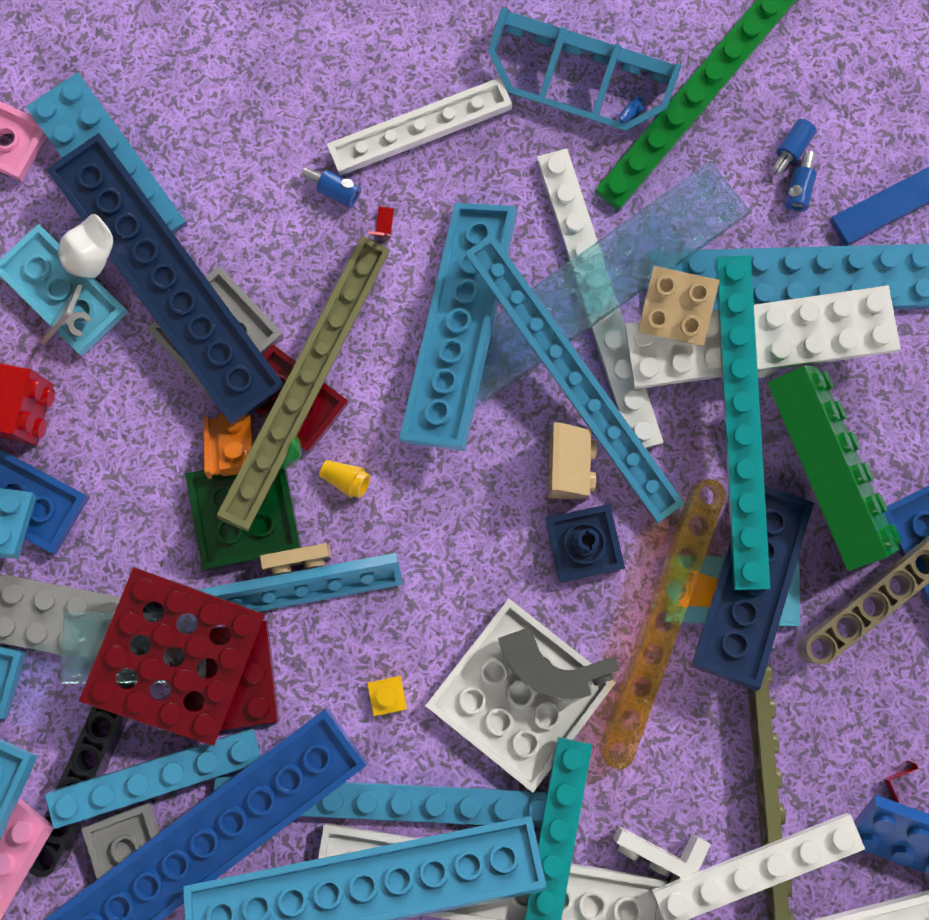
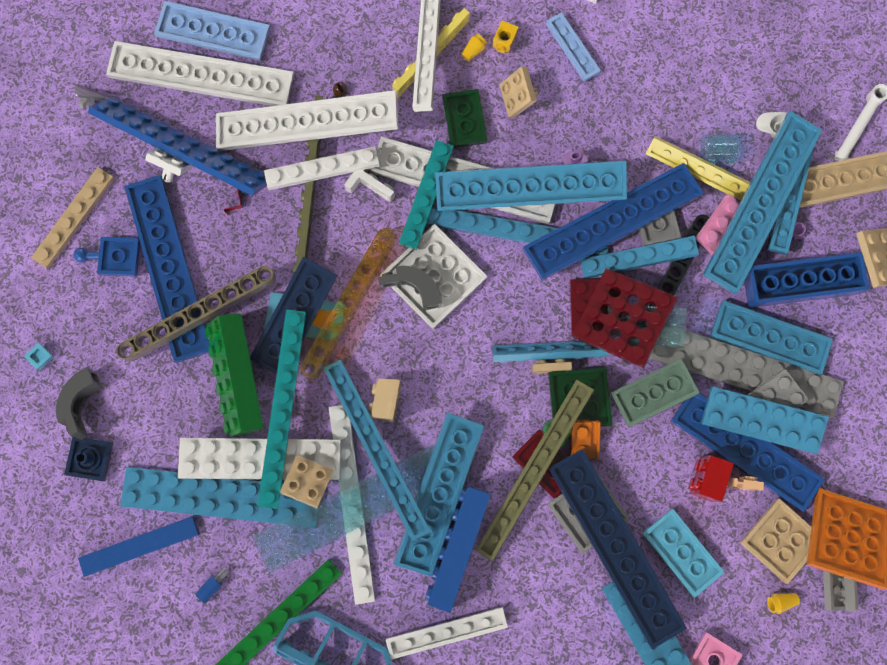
camera: 175 degrees left, 0 degrees up
(67, 316) = (678, 530): light grey piece -> none
(86, 248) = (664, 571): white piece -> none
(114, 537) = (655, 393): none -> sand green plate
(333, 186) = (506, 599): blue piece -> none
(346, 478) = (517, 410): yellow cone -> none
(384, 222) = (477, 569): red piece -> none
(387, 695) = (507, 285): yellow plate -> none
(418, 243) = (458, 549): none -> blue brick
(584, 543) = (384, 354): dark blue plate -> none
(632, 109) = (308, 625): blue helmet -> none
(801, 184) = (211, 559): blue piece -> none

